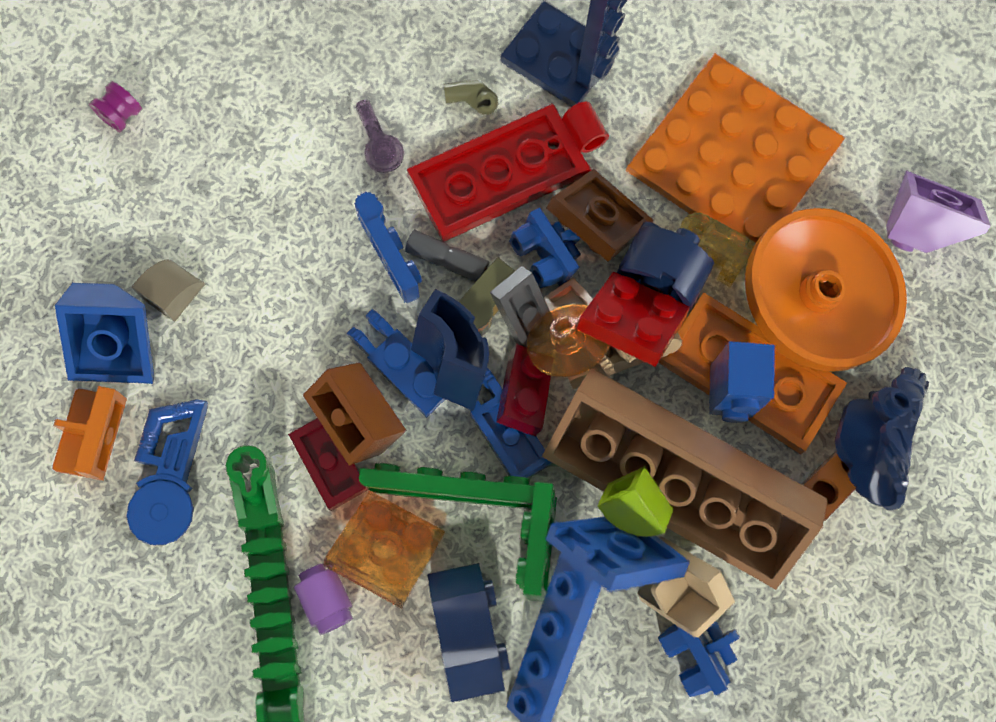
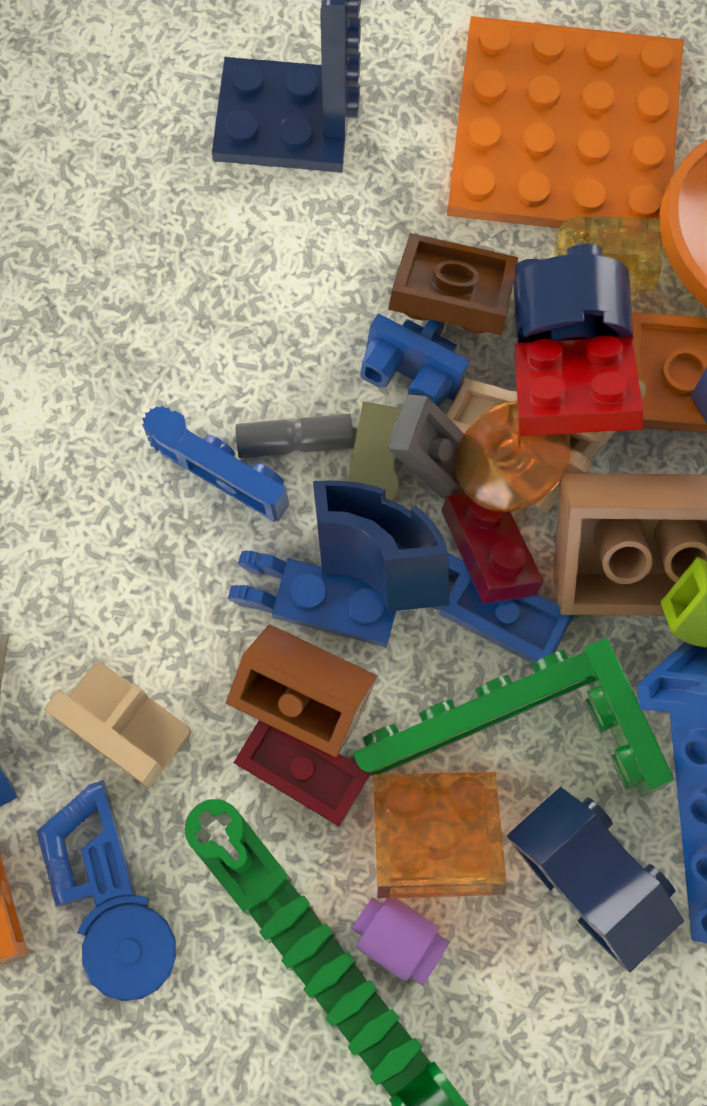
camera: 25 degrees left, 0 degrees up
(236, 373) = (120, 723): none -> tan panel
(383, 151) = (135, 348): clear purple plate -> none
(473, 93) = (205, 217): olive arm -> none
(506, 167) = (302, 288): red hinge -> none

